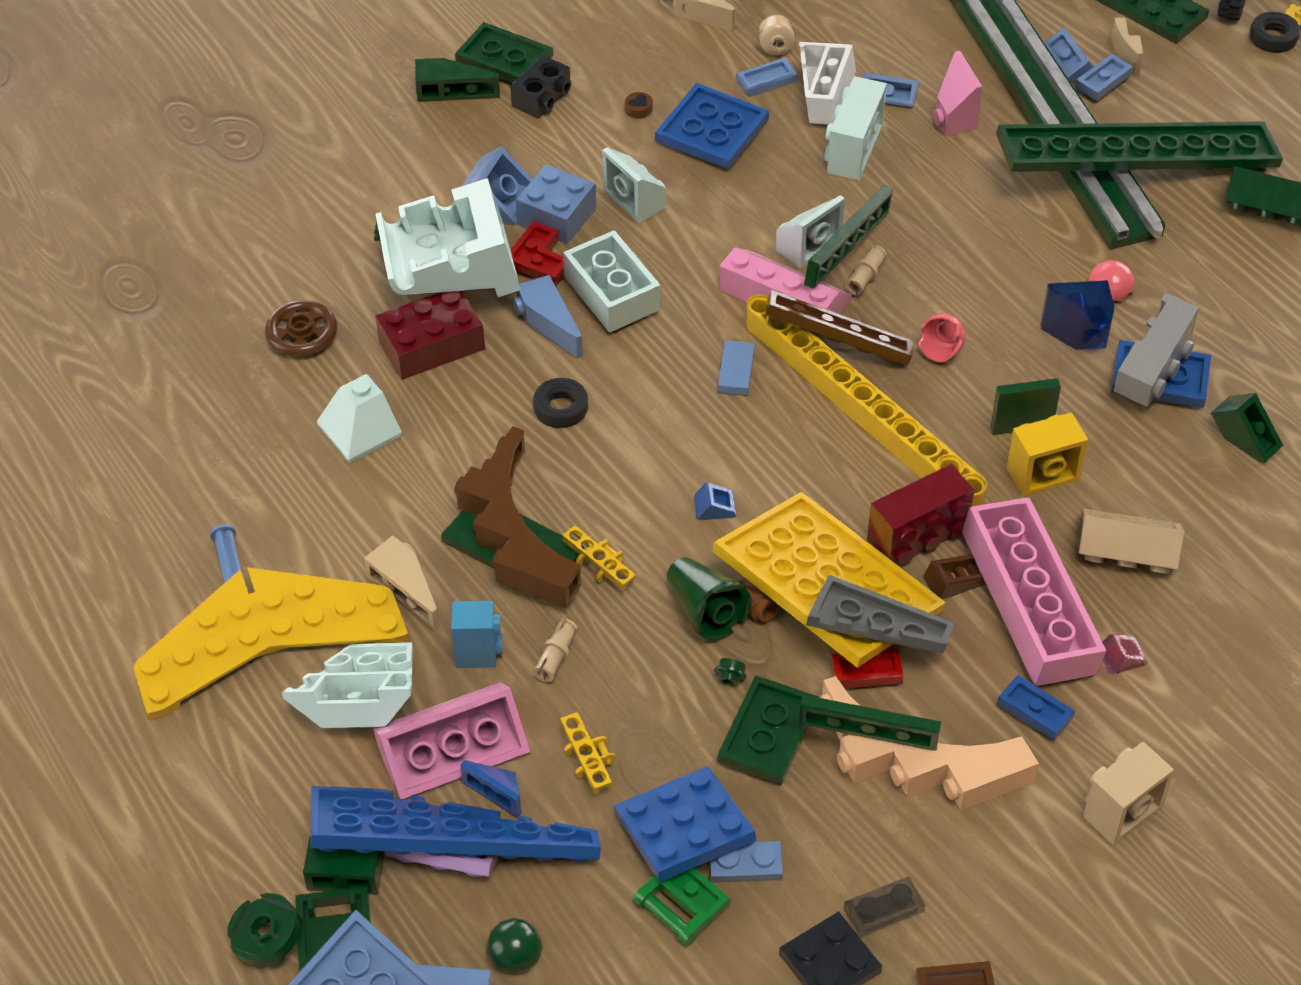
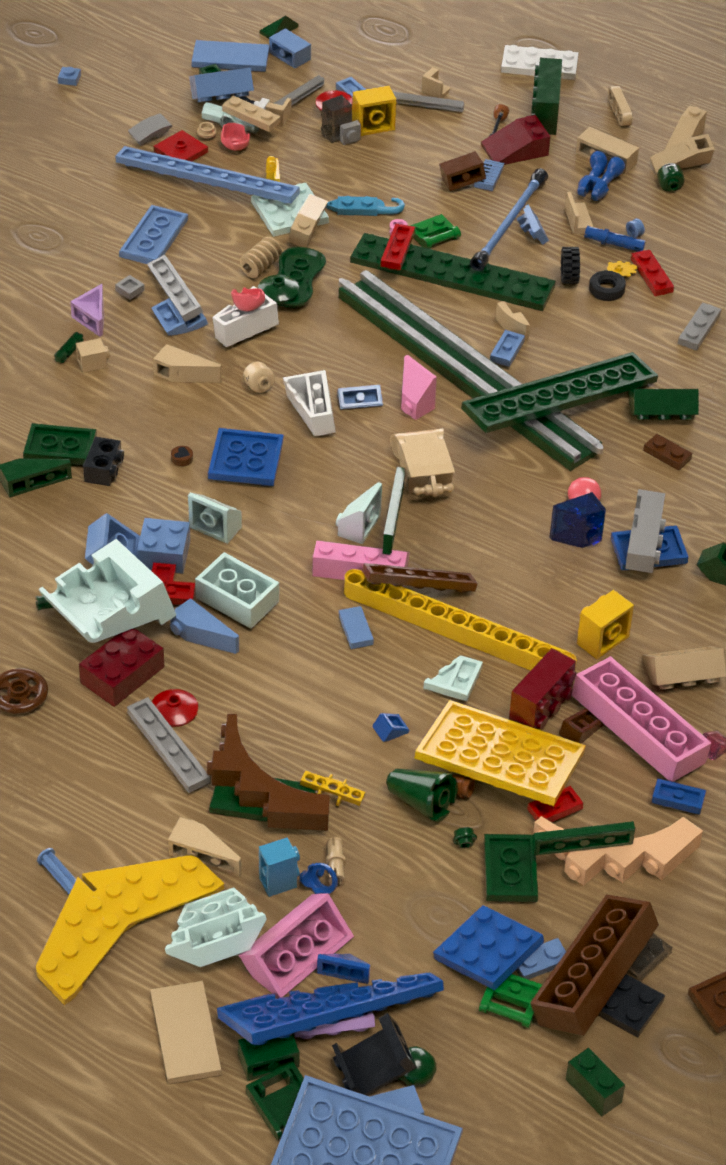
camera: 25 degrees left, 5 degrees down
(265, 803) = (185, 1032): none -> tan tile
(277, 942) = (245, 1128): dark green plate -> none
(359, 419) = (102, 744): light aqua slope -> none
(434, 443) = (168, 745): none -> light grey plate
(462, 920) = (376, 1059): none -> black panel
(469, 401) = (176, 706): none -> red dish
(513, 663) = (310, 878): none -> blue piece
(560, 417) = (243, 677): black tyre -> none
(588, 744) = (407, 924): yellow piece -> none
(766, 77) = (265, 410): medium blue tile -> none
(803, 893) = (594, 964): none -> reddish brown brick
(827, 467) = (456, 679): none -> light aqua wing
(855, 128) = (356, 431): light aqua brick -> none
(865, 270) = (412, 532): tan pin -> none
(867, 614) = (546, 767): dark grey wing -> none
(925, 187) = (425, 460): none -> tan piece
(942, 337) = (491, 564): coral hair -> none
(1024, 404) = (574, 595): dark green tile -> none
(1068, 55) = (476, 338): medium blue plate -> none
(1249, 259) = (667, 452): none -> reddish brown plate

